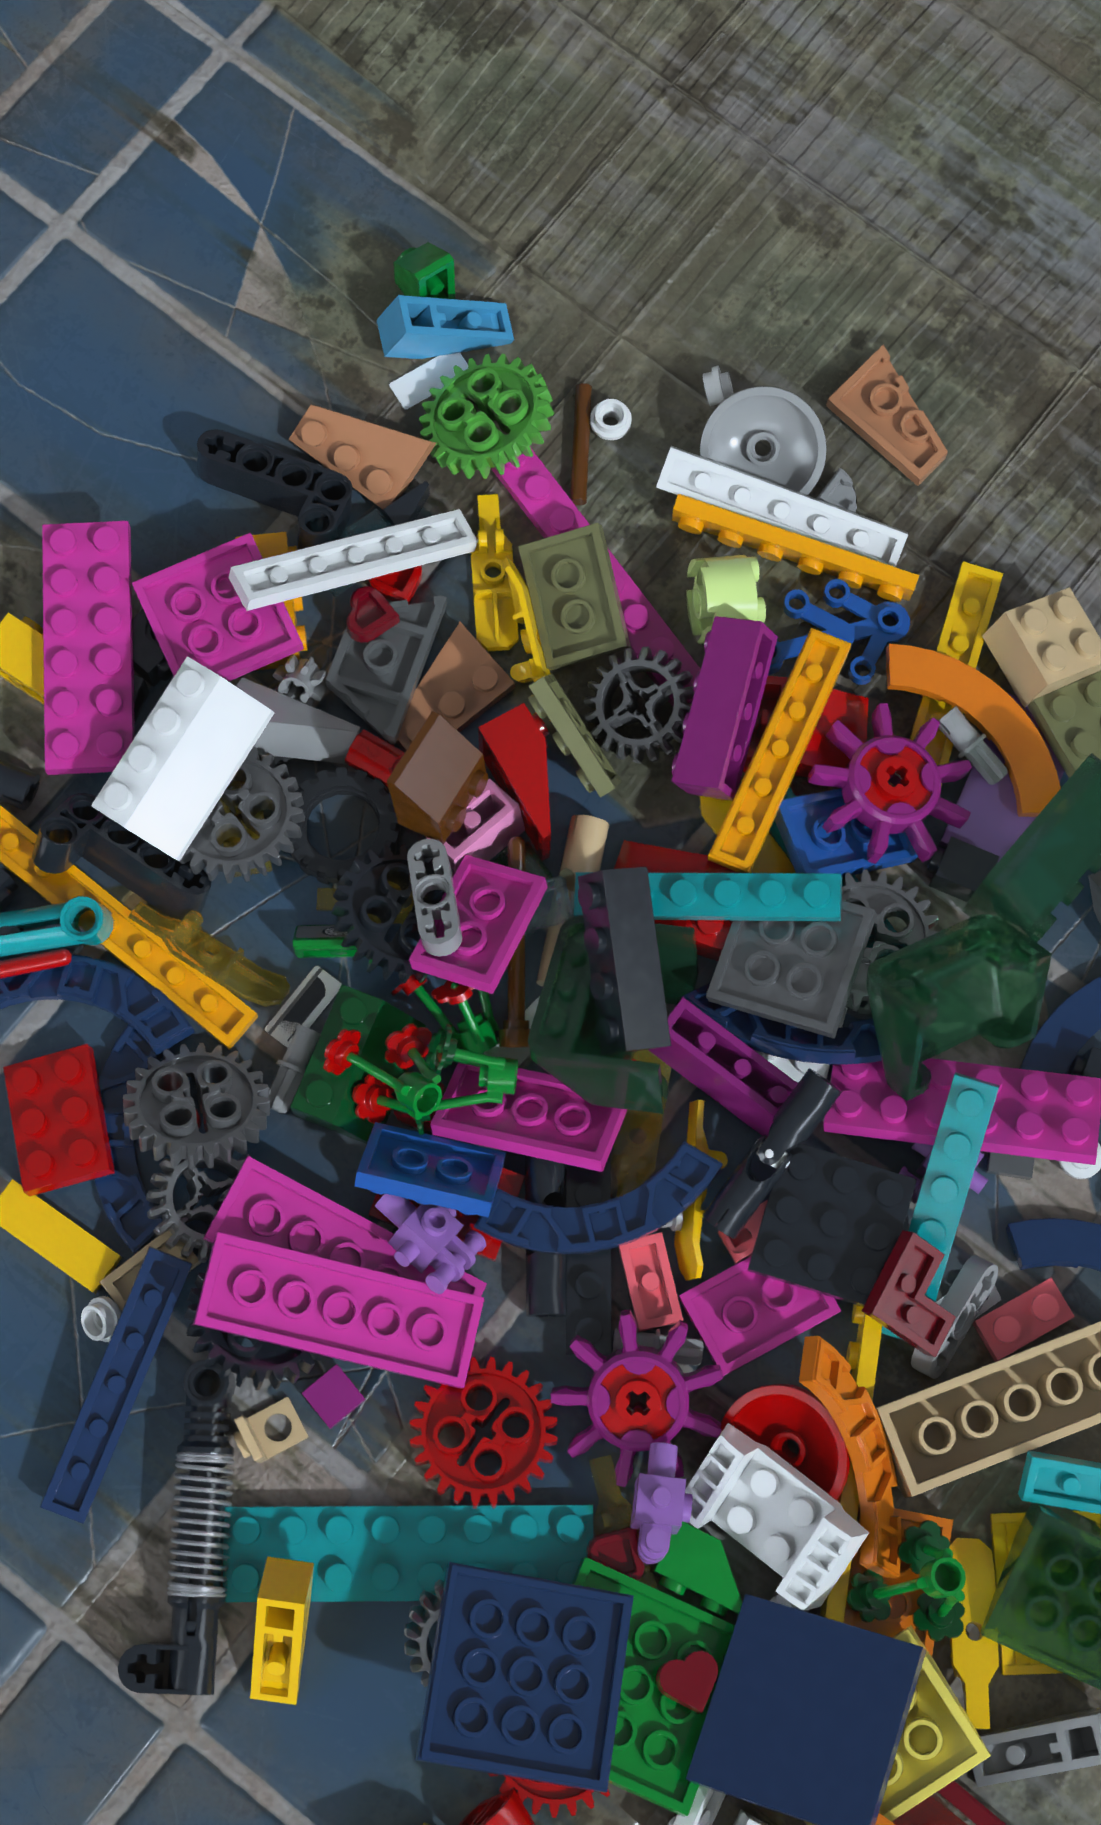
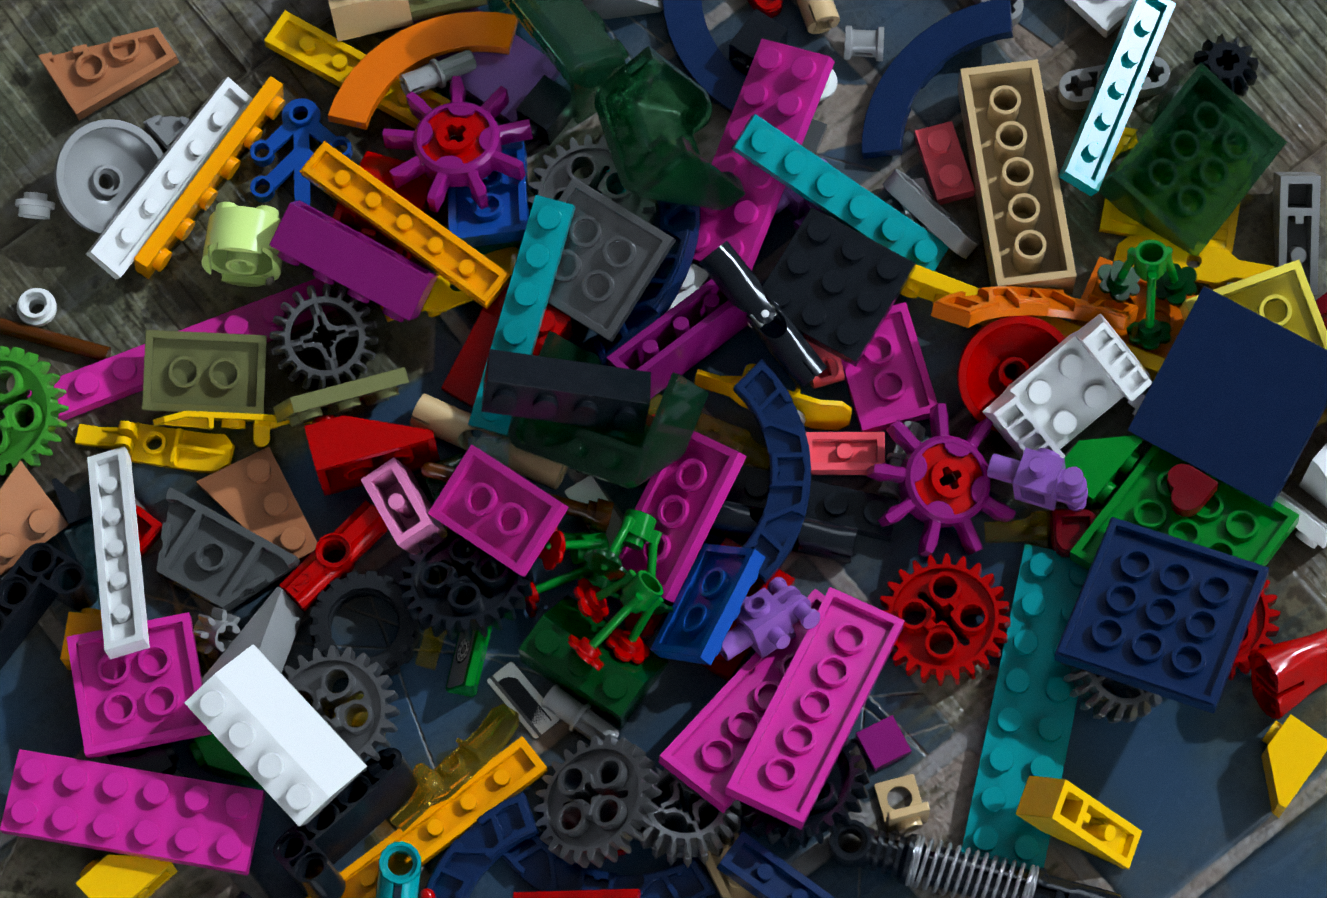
camera: 70 degrees left, 5 degrees down
(369, 615) = (170, 556): dark red tile -> none
(437, 780) = (359, 515): reddish brown slope -> none
(444, 910) = (480, 550): light grey beam -> none
(900, 1297) = (910, 242): dark red plate -> none

